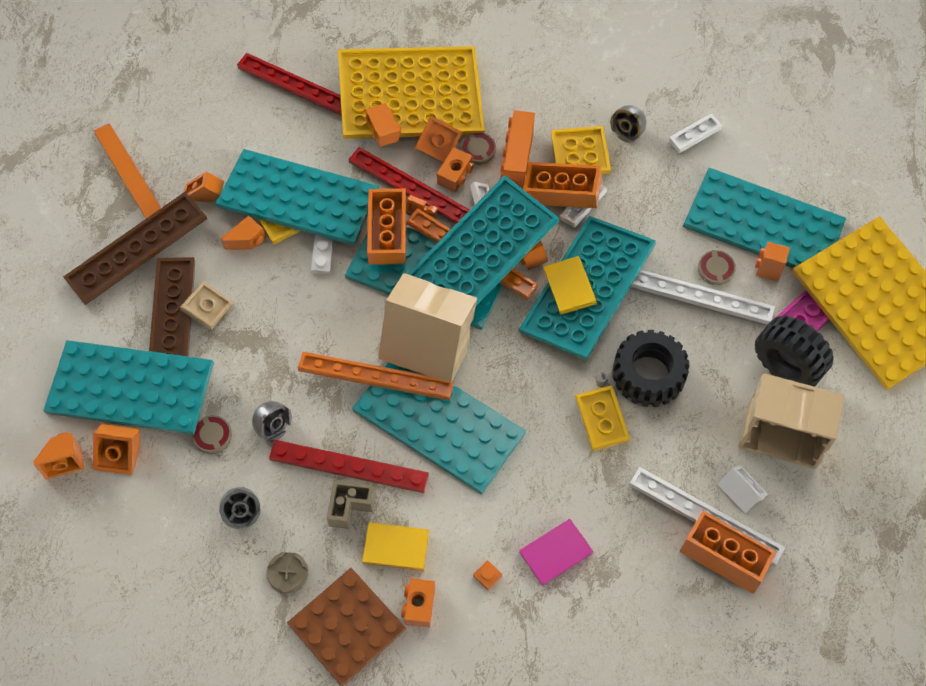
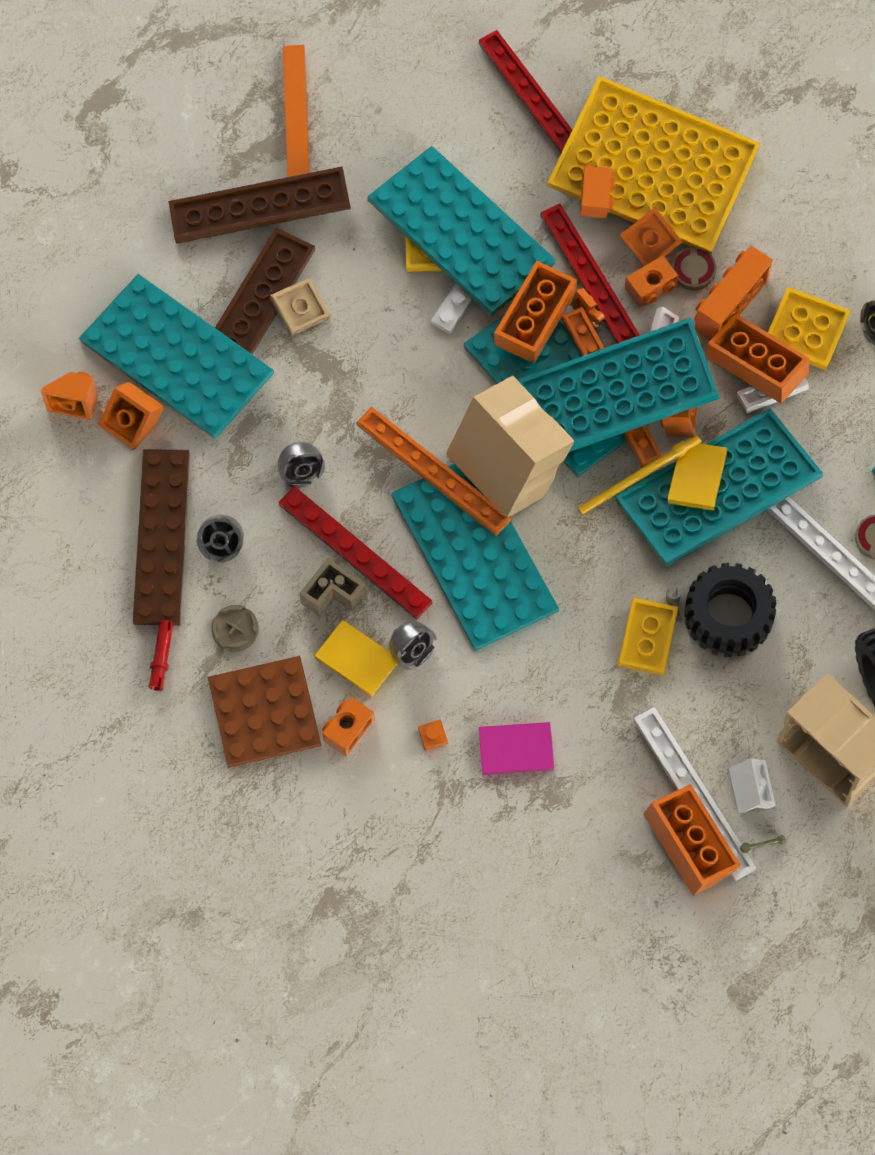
camera: 30 degrees right, 5 degrees up
(190, 532) = (161, 537): none -> reddish brown plate
(204, 187) = (366, 171): orange slope -> none
(212, 434) = (234, 448): dark tan tile -> none
(242, 632) = (159, 664): none -> red pin
(244, 236) = (380, 247): orange slope -> none
(432, 513) = (411, 644): none -> flat silver cylinder
(547, 273) = (678, 450): none -> yellow bar
(770, 535) = (745, 847): none -> olive hinge

